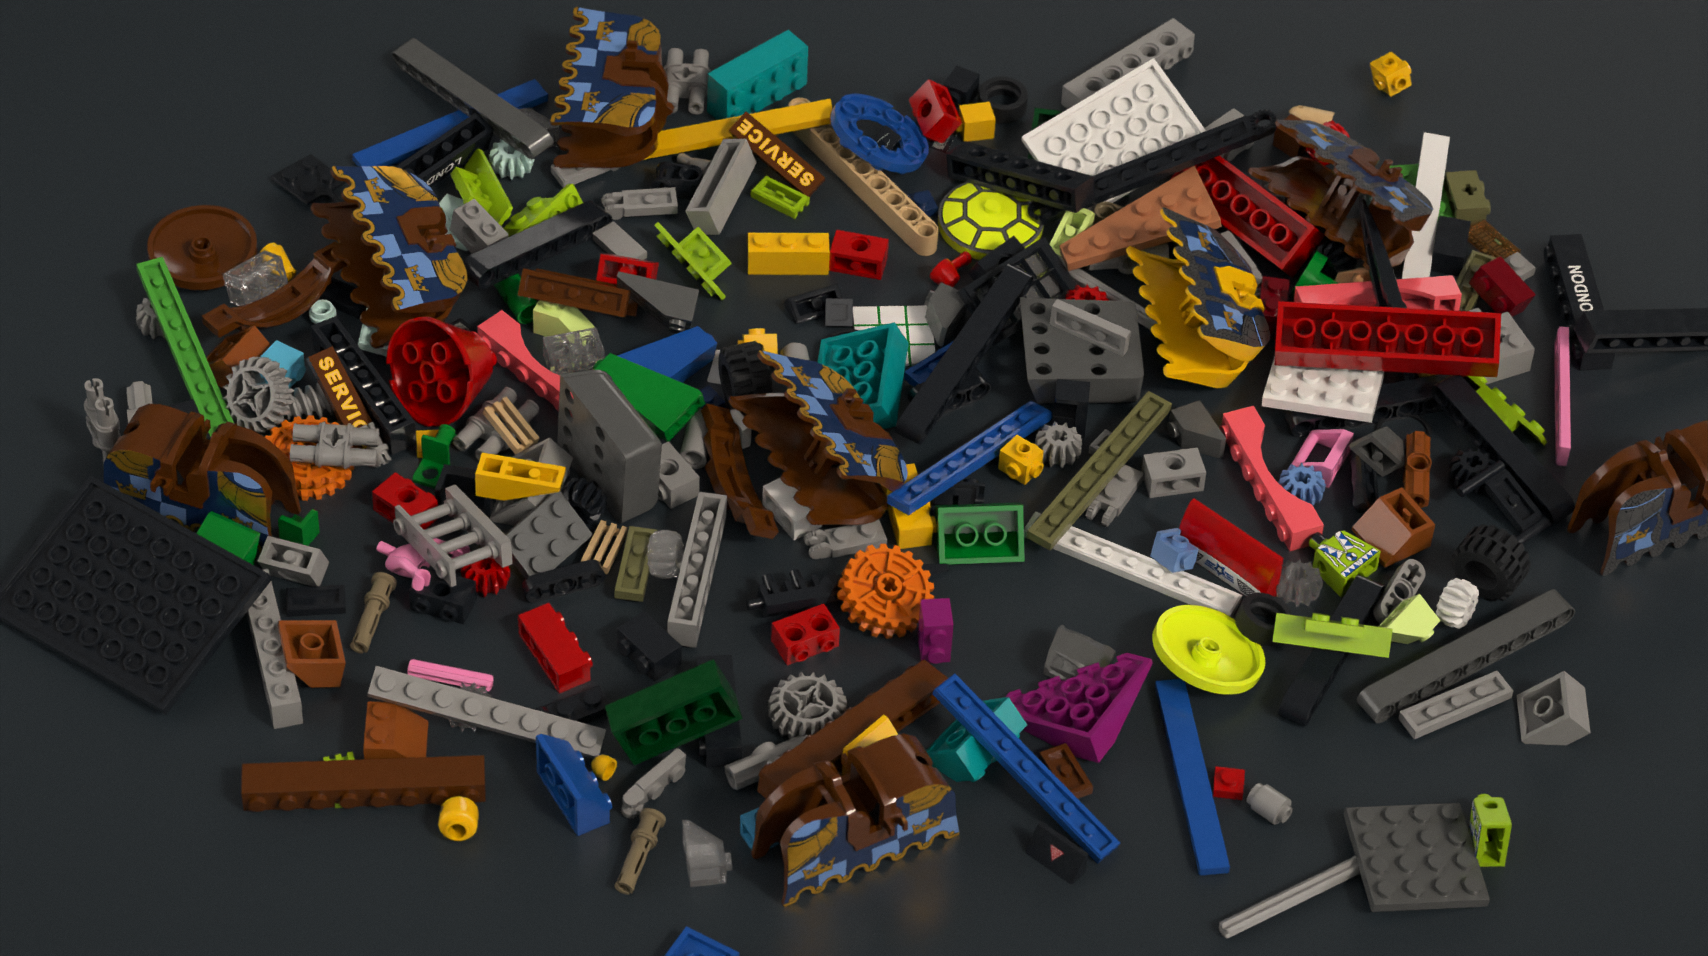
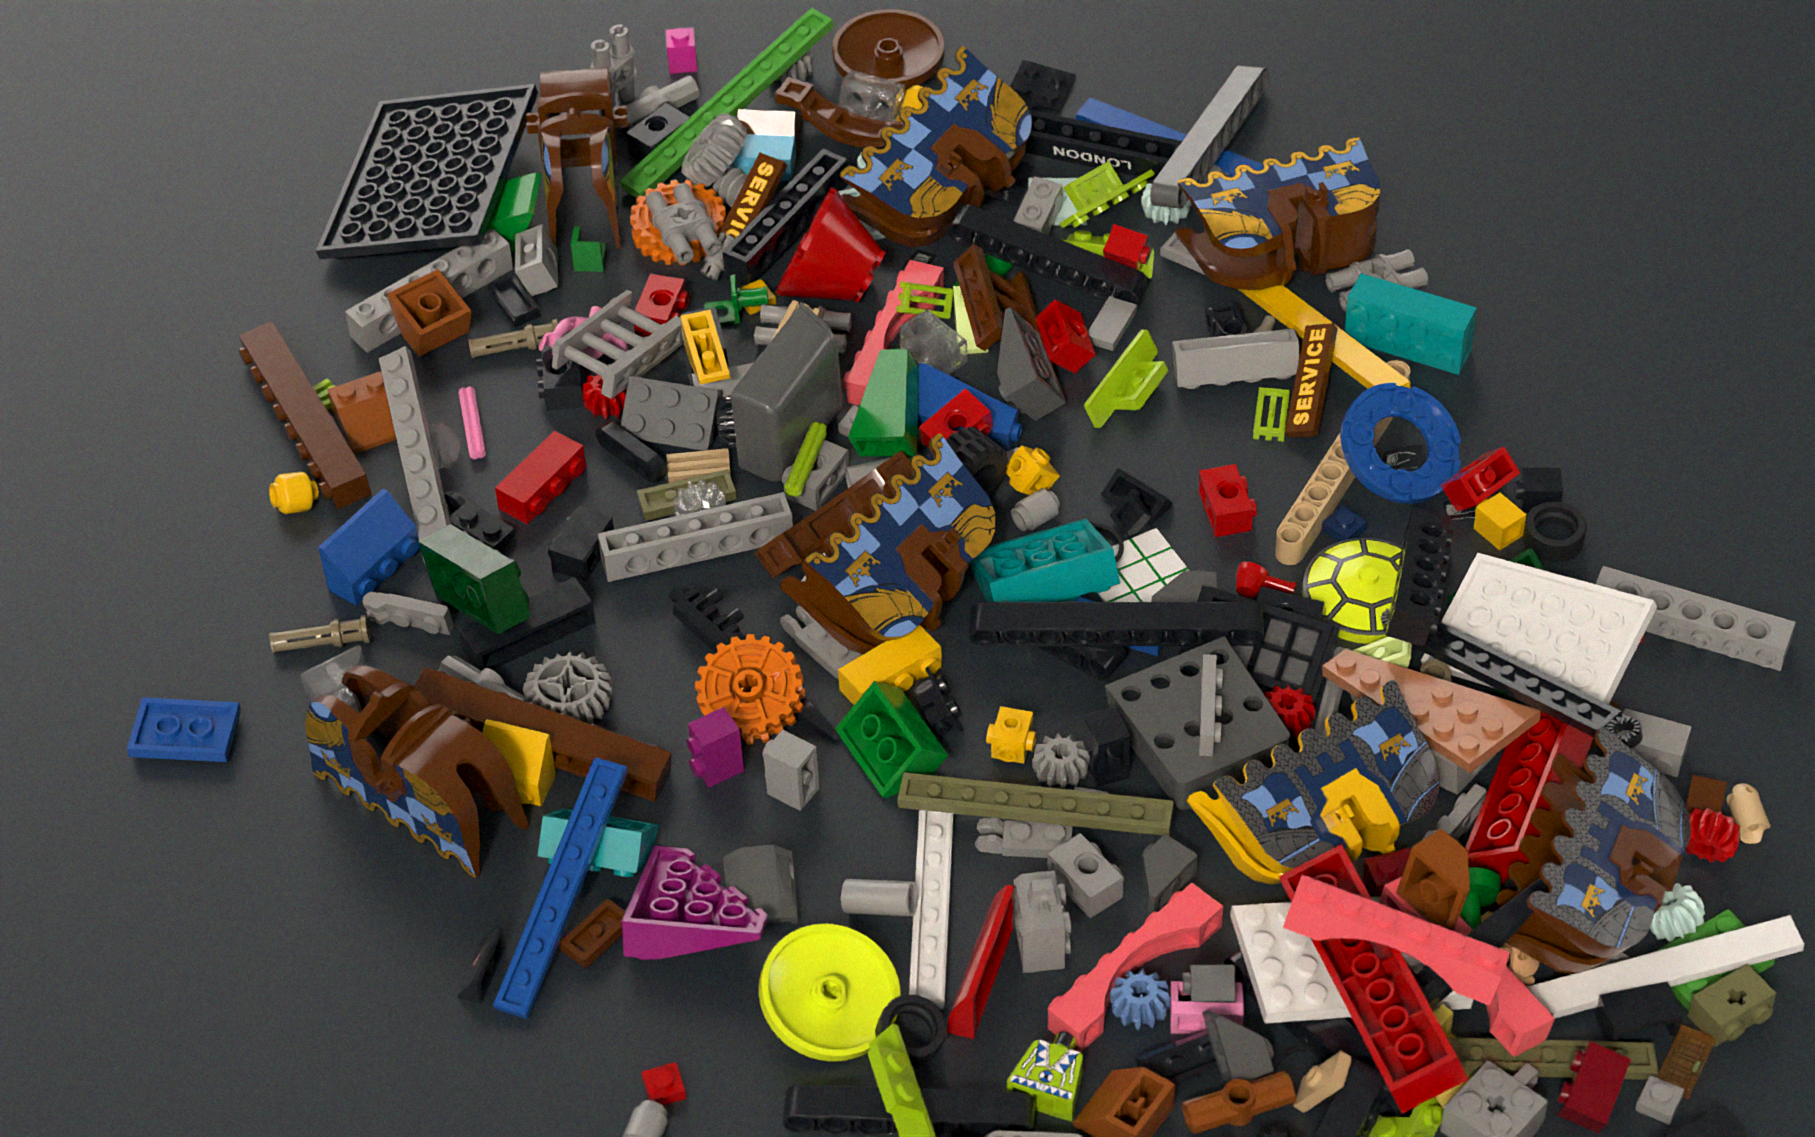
camera: 70 degrees right, 0 degrees up
(84, 370) = (681, 50): none -> dark pink brick
(528, 329) = (906, 297): none -> lime tile
(568, 193) = (1127, 247): none -> red brick
(603, 766) = (413, 571): yellow hinge -> none
(641, 202) = (1178, 313): light grey hinge -> none
(680, 475) = (805, 459): none -> lime axle
(695, 350) = (961, 411): none -> red brick
(788, 253) = (1188, 440): yellow slope -> none
(805, 634) = (664, 654): red brick -> none
(968, 458) = (971, 685): blue tile -> none
(985, 594) = (791, 769): none -> light grey brick
(1132, 591) = (879, 897): none -> light grey pin
(1174, 550) = (961, 913): medium blue brick -> none
(1192, 777) = (644, 1053): blue tile -> none
(1216, 493) = (1041, 921): none -> light grey hinge
(1299, 583) = (989, 1045): clear gear -> none
(1323, 435) = (1210, 983): none -> dark grey brick
(1334, 269) = (1436, 879): none -> dark orange slope
(1343, 327) = (1463, 962): none -> coral arch
(1433, 413) = (1322, 1081): none -> tan plate

